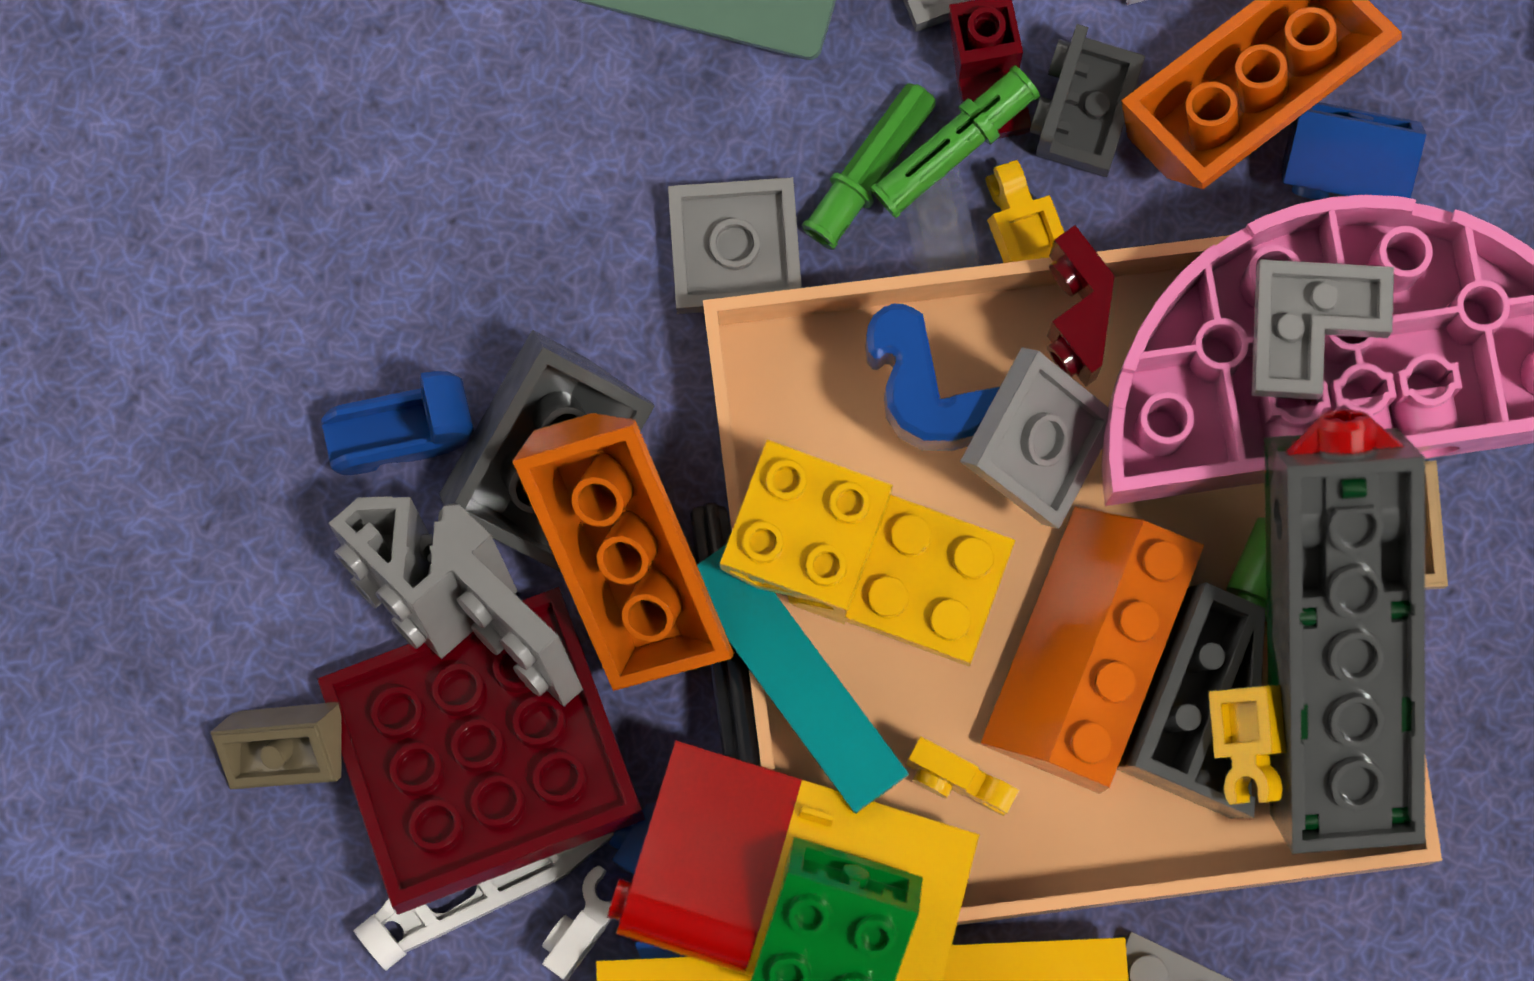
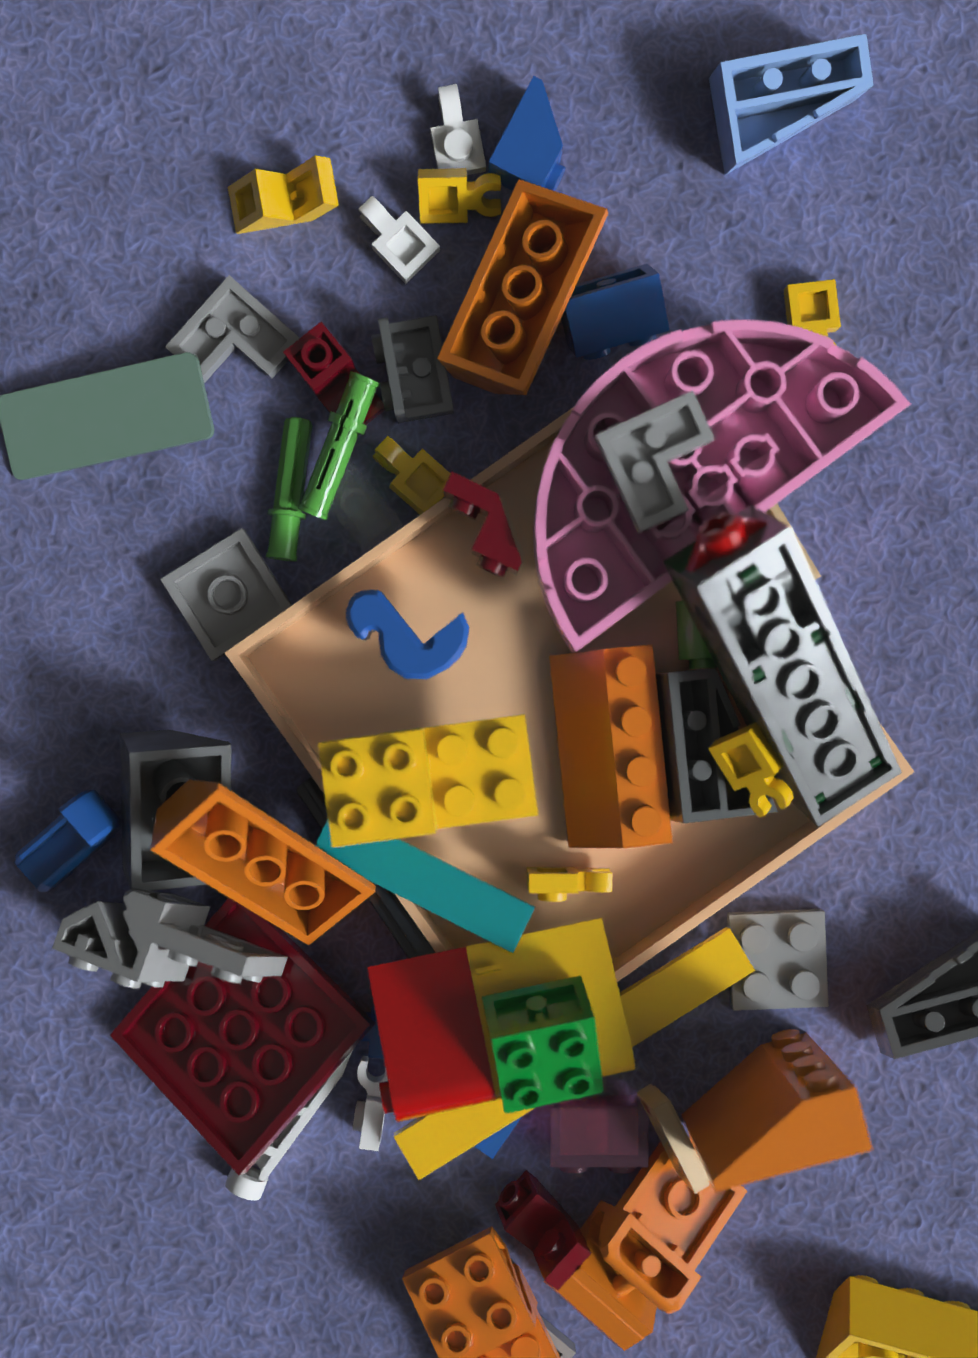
camera: 30 degrees left, 10 degrees up
(280, 746) = (109, 1092): dark tan slope -> none
(1038, 438) = (503, 634): light grey plate -> none

